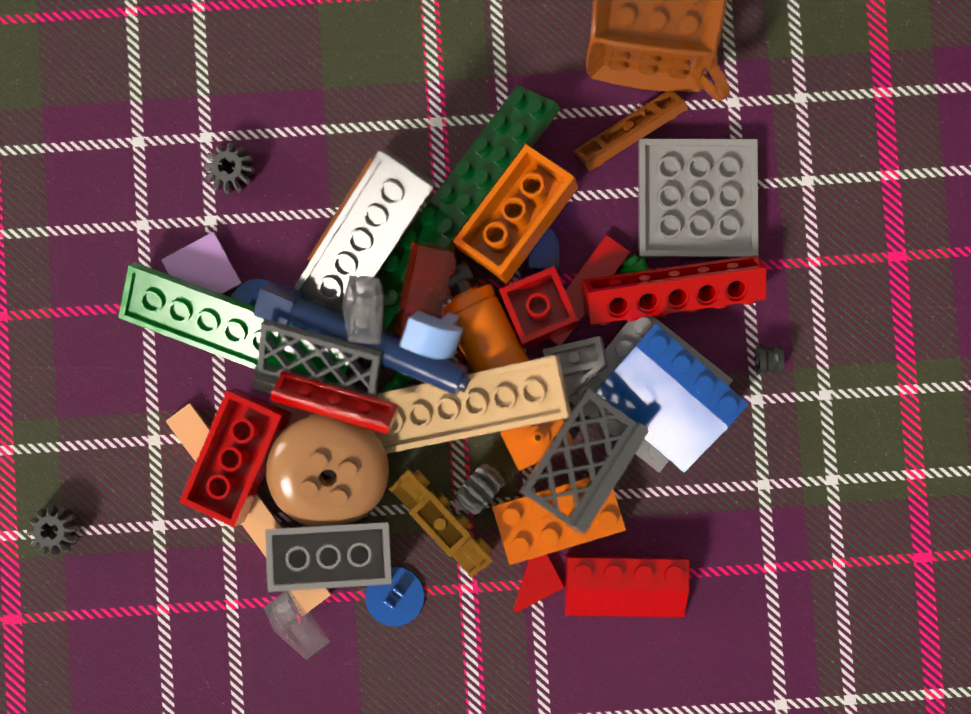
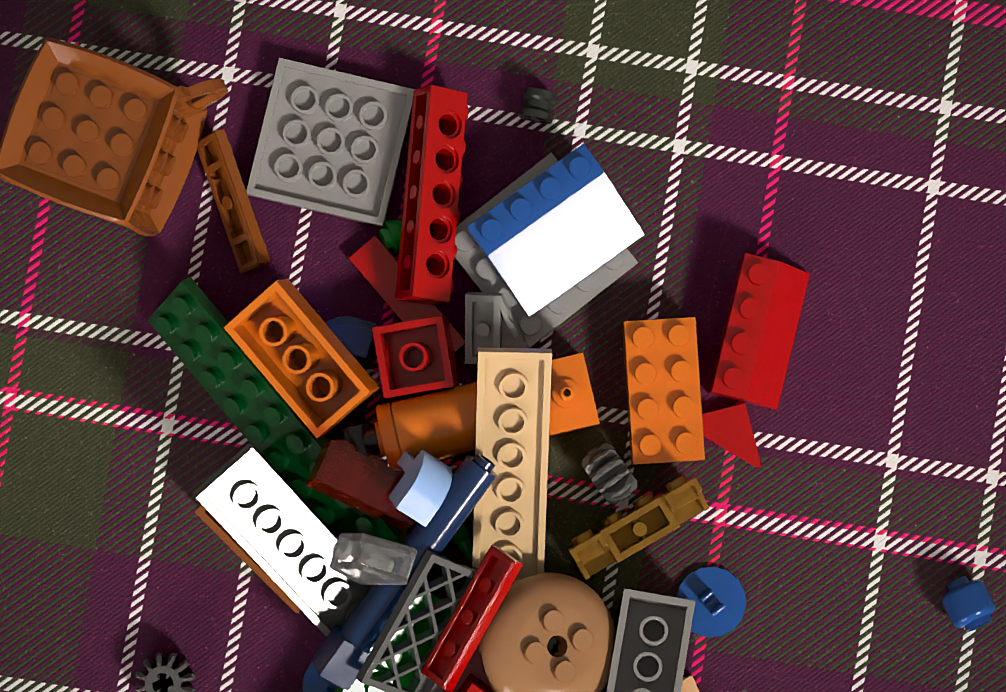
camera: 70 degrees left, 0 degrees up
(602, 480) = (627, 324): dark grey fence -> none

